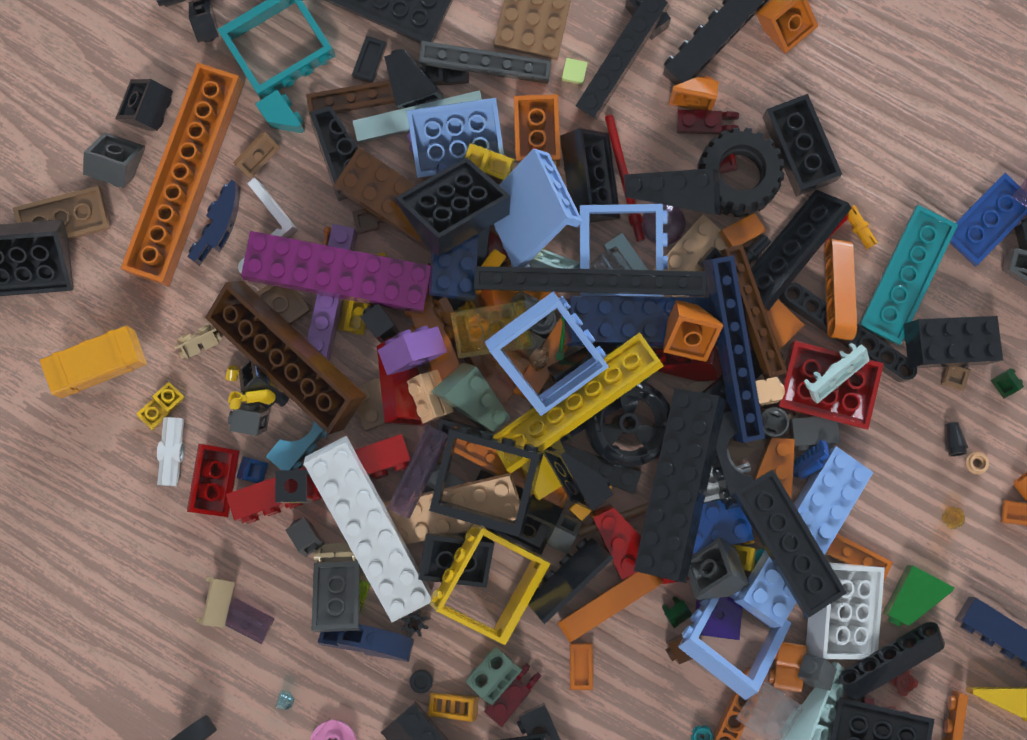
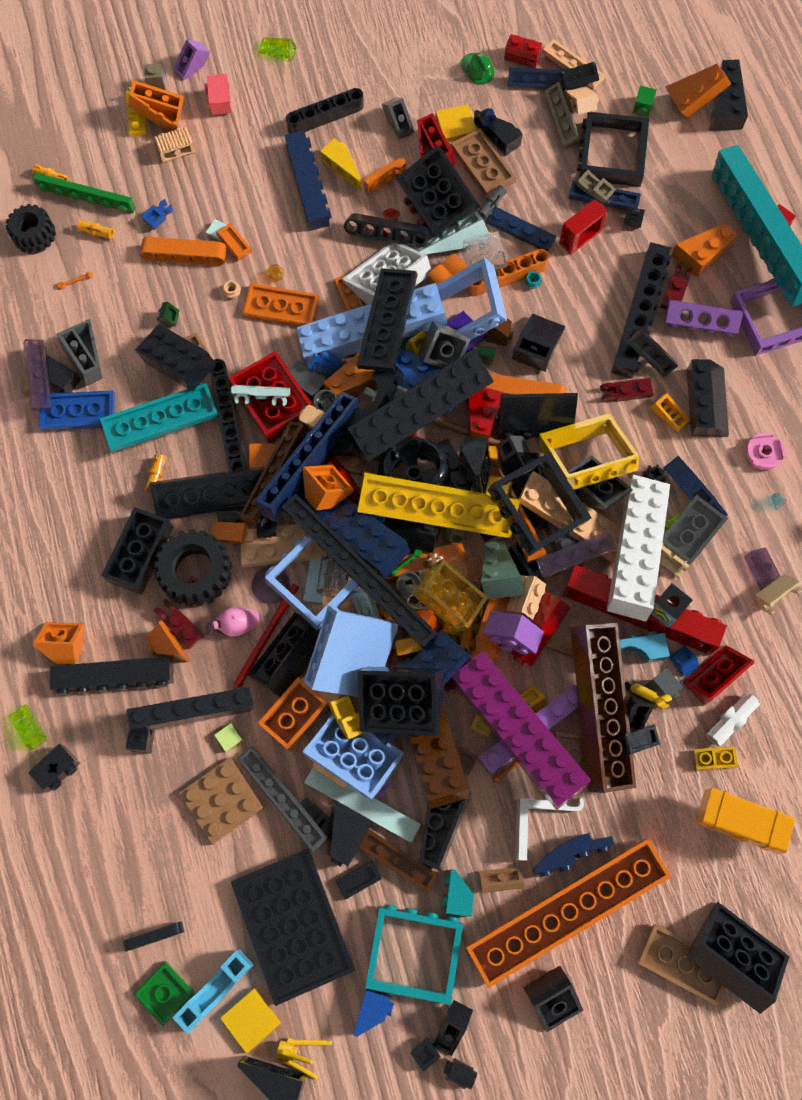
camera: 140 degrees left, 10 degrees down
(112, 160) = (610, 975): dark grey slope -> none
(189, 344) = (661, 783): tan hinge -> none
(233, 359) = (640, 739): none -> black tile
(304, 536) = (685, 583): dark grey brick -> none
(379, 322) = (518, 674): black brick -> none
(421, 681) = (678, 443): black tile -> none
(496, 678) = (630, 402): sand green brick -> none
(569, 383) = (428, 564): light blue window -> none
(581, 666) = (570, 372): orange tile -> none
(638, 671) = (538, 342): none -> black slope
(663, 156) = (233, 622): none -> bright pink hair
(682, 189) = (245, 587): black wedge -> none
(817, 672) = (436, 253): dark grey brick -> none
(840, 289) = (208, 441): orange beam -> none
(915, 489) = (280, 305): none -> orange tile
(915, 596) = (340, 251): green slope -> none
(954, 440) = (231, 310): black cone -> none

